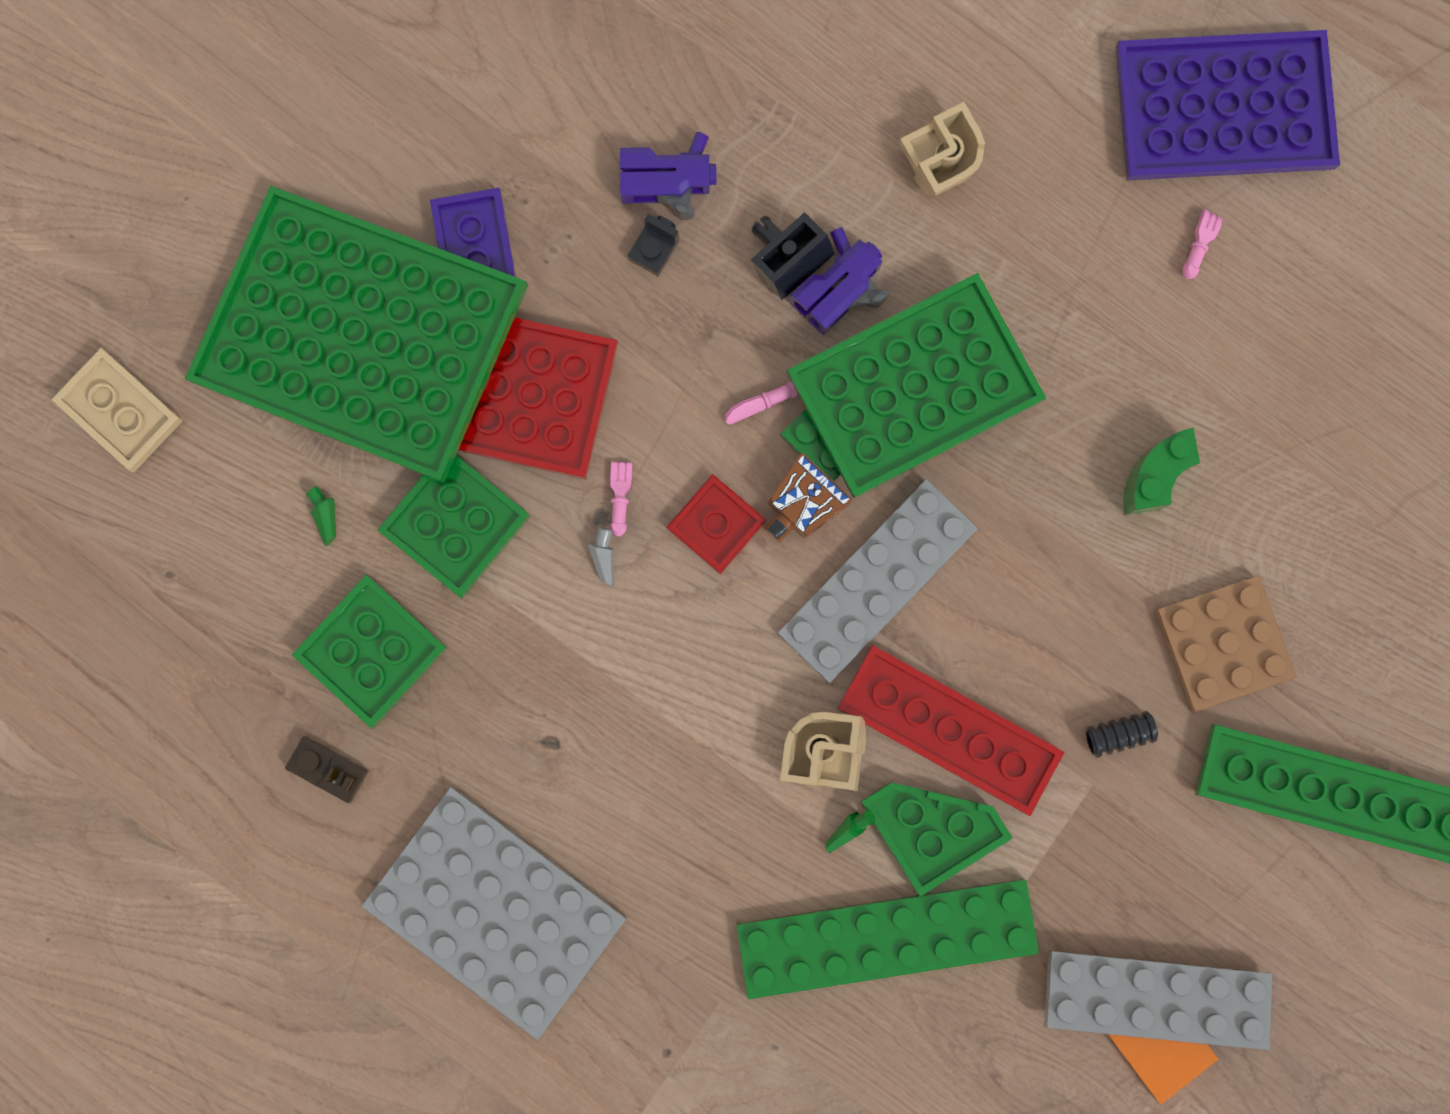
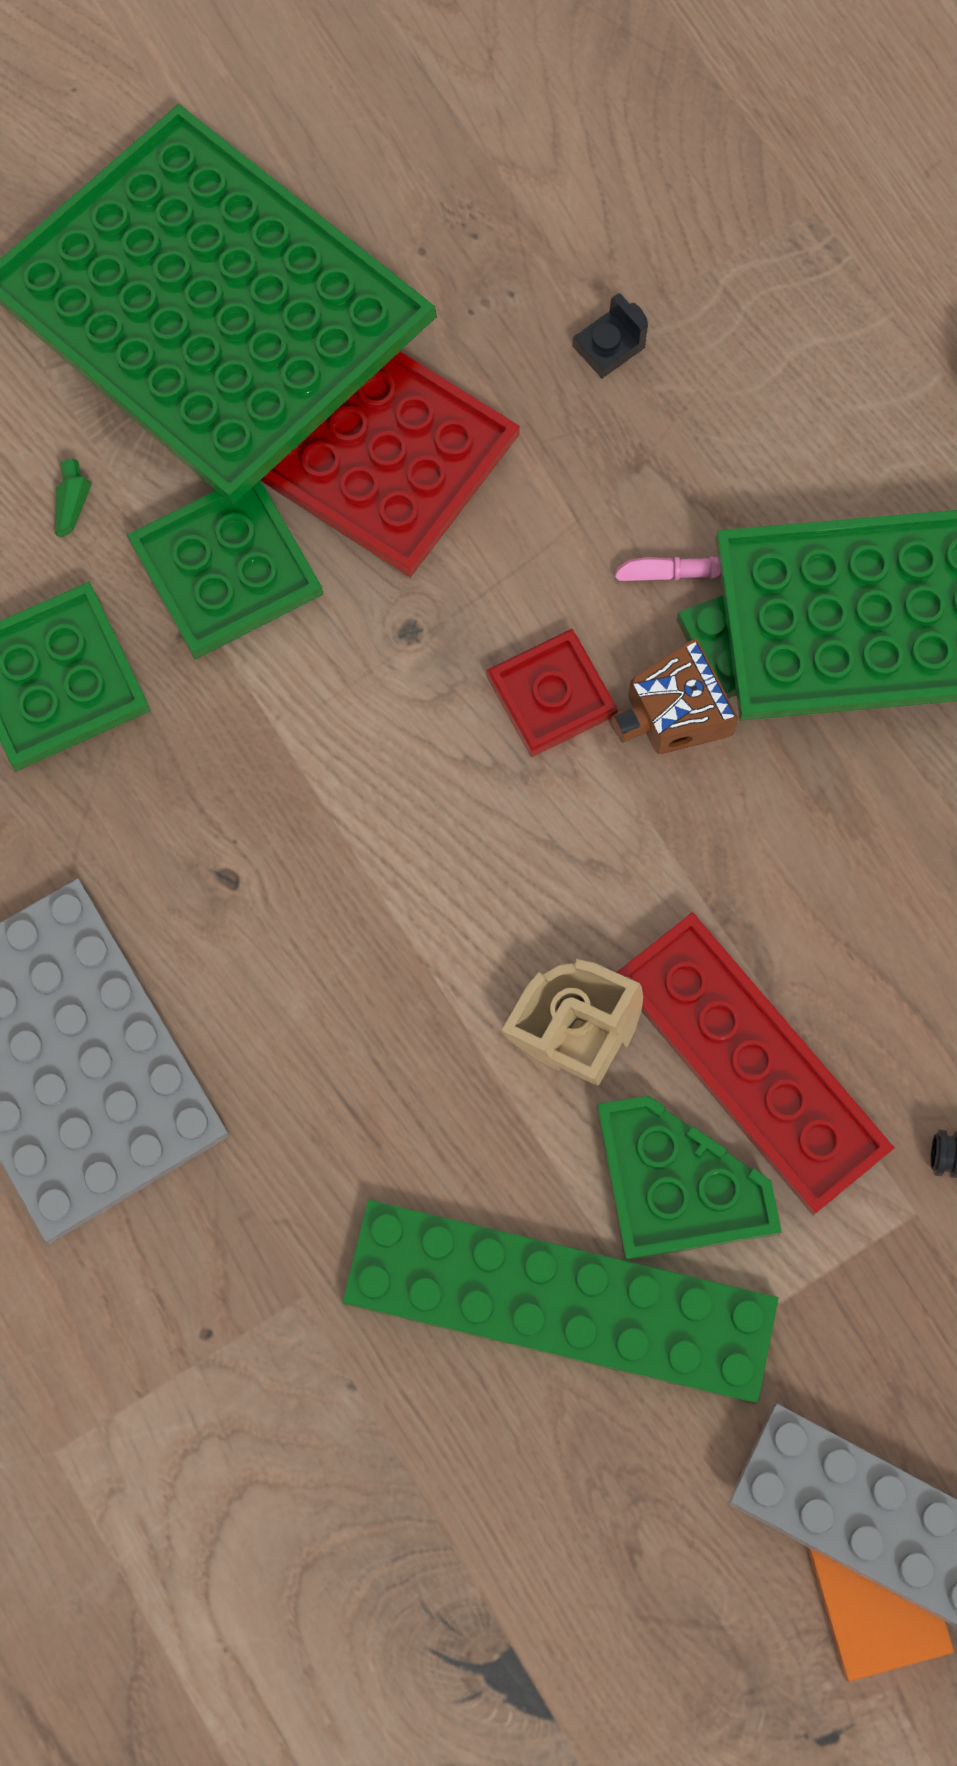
camera: 25 degrees right, 10 degrees down
(474, 228) = (402, 234): dark purple plate -> none
(603, 555) = (393, 674): light grey bar -> none
(620, 484) = (451, 600): bright pink piece -> none
(667, 177) = (659, 265): dark purple piece -> none
(790, 254) = (778, 403): black brick -> none
(841, 286) = (826, 466): dark purple piece -> none
(849, 829) = (568, 1135): green bar -> none
(877, 581) = (730, 840): light grey plate -> none

